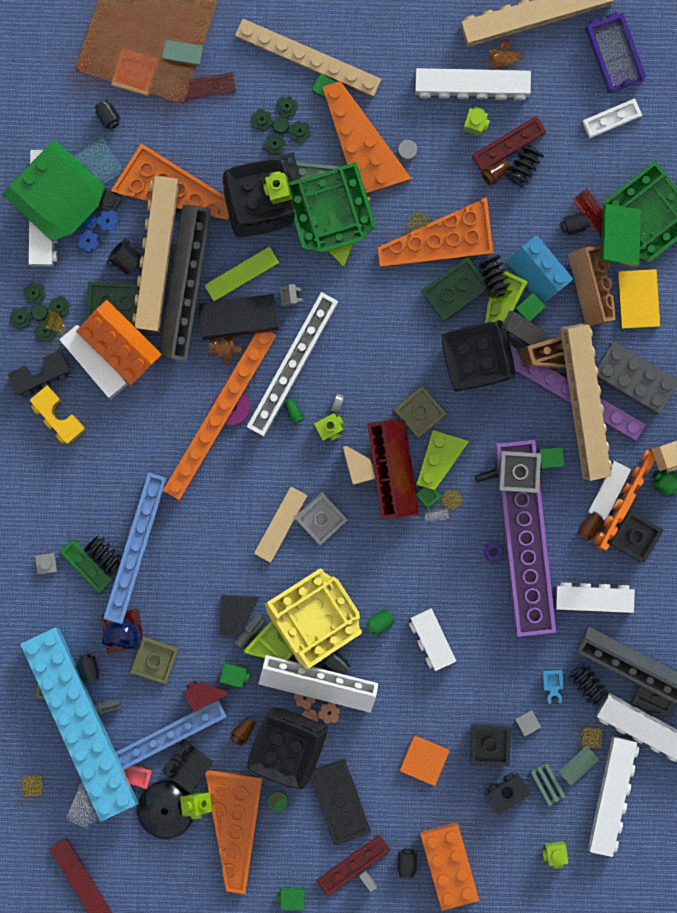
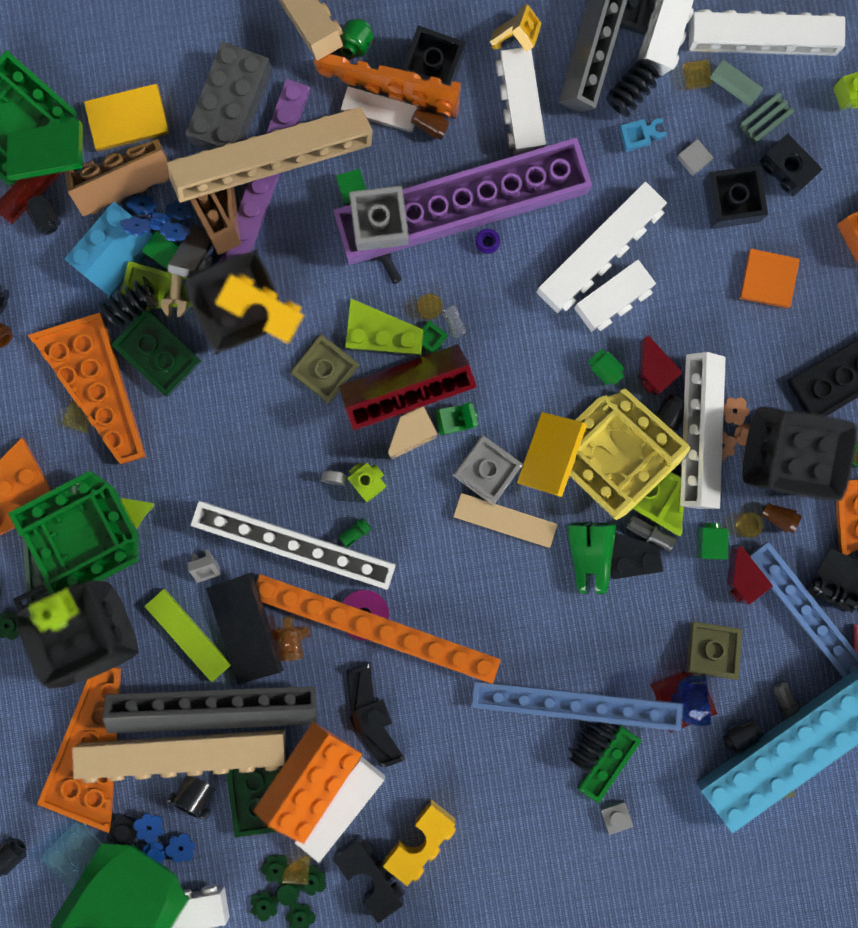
camera: 105 degrees left, 0 degrees up
(155, 397) = (371, 716): none -> black plate
(241, 706) = (749, 525): none -> clear yellow tile
(243, 583) = (592, 553): none -> green piece
(323, 567) = (552, 454): none -> yellow tile
(363, 502) = (456, 418): none -> green bracket
(372, 659) = (655, 367): none -> dark red slope
(457, 388) = (240, 295): none -> yellow arch
(471, 636) = (602, 247): none -> white brick
(494, 311) = (175, 297): none -> tan bar
(552, 309) = (157, 220): none -> blue plant
(649, 607) = (523, 26): none -> yellow piece

